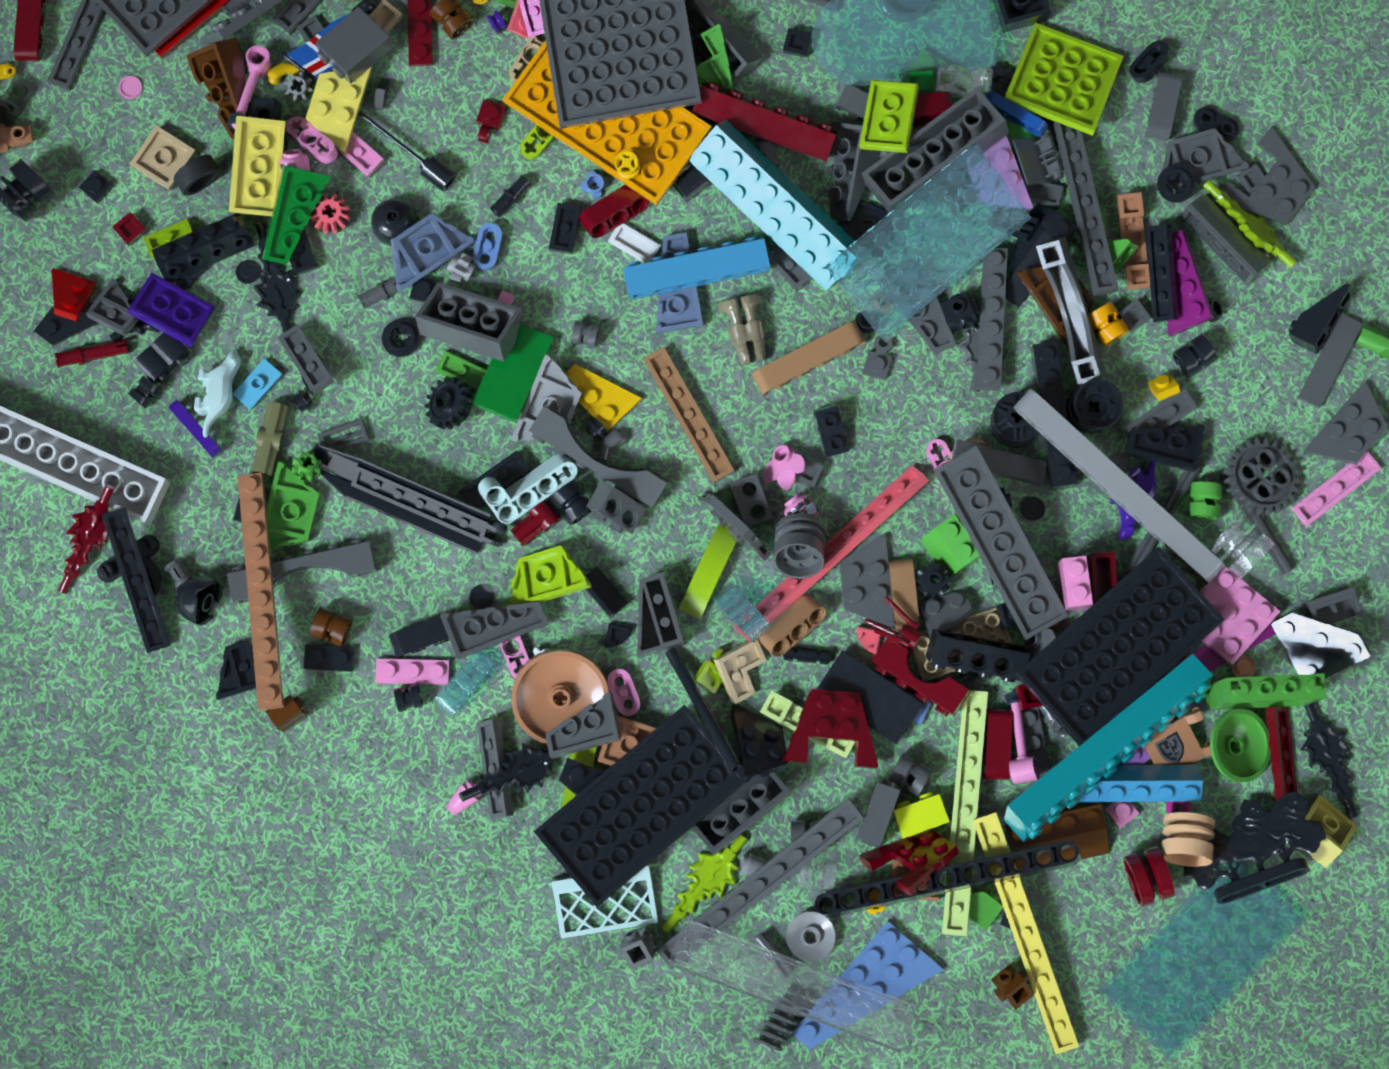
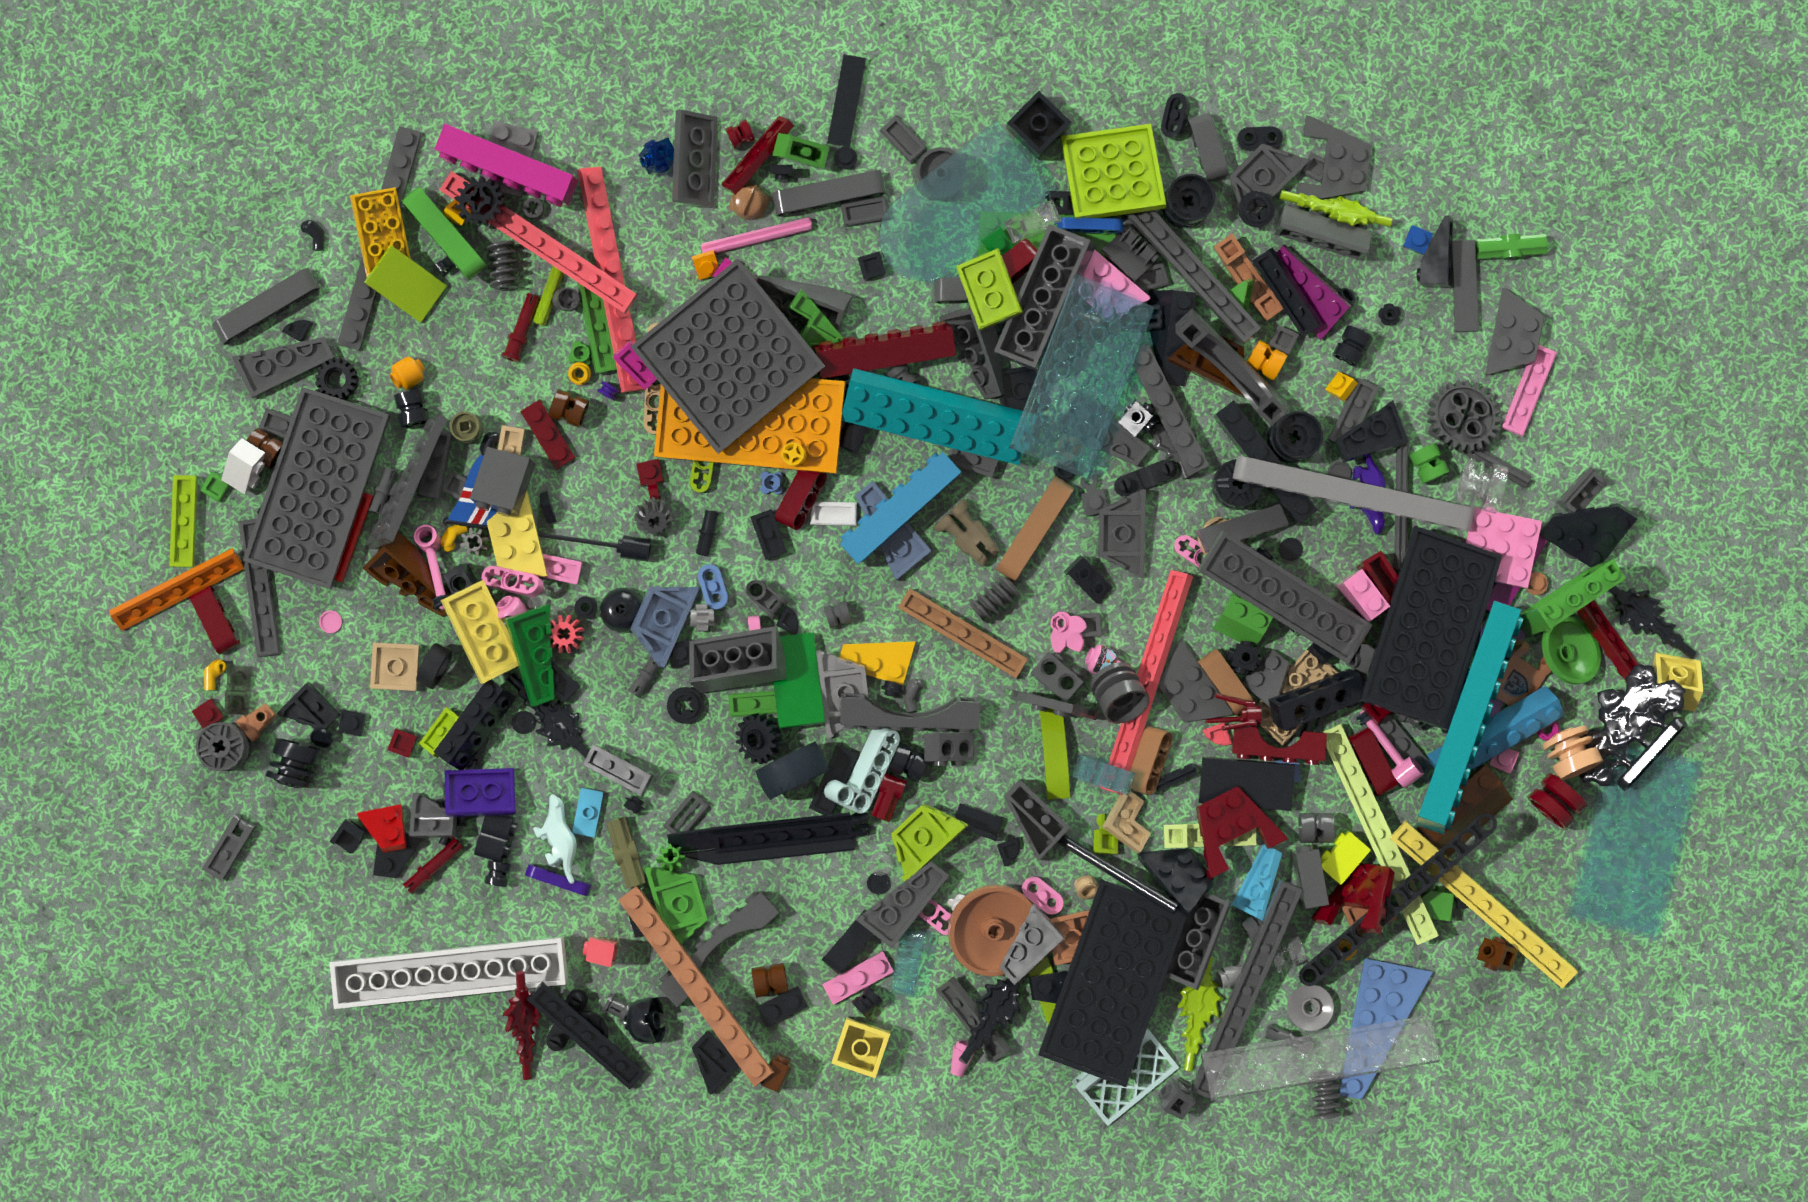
camera: 35 degrees left, 5 degrees up
(32, 283) = (348, 835): none -> black panel
(61, 183) = (321, 737): none -> black piece
(66, 152) = (309, 708): none -> black wing
(195, 513) = (601, 951): none -> coral slope
(366, 208) = (593, 607): none -> black plate
(377, 734) = (860, 1047): none -> light yellow brick
(461, 446) = (792, 770): none -> black wheel
(474, 161) = (653, 516): none -> dark grey gear
(530, 285) = (767, 599): none -> dark grey piece
(537, 315) = (788, 621): none -> black tile
(666, 707) = (1086, 886): none -> tan tile
(735, 398) = (994, 598): none -> dark grey piece
(827, 794) = (1258, 884): none -> medium azure wing
(887, 407) = (1123, 533): none -> dark grey wing
(936, 369) = (1145, 477): none -> black piece
(1117, 128) = (1201, 199): none -> black wheel
(1239, 347) = (1383, 314): none -> black plate
(1309, 294) = (1417, 240): none -> blue plate

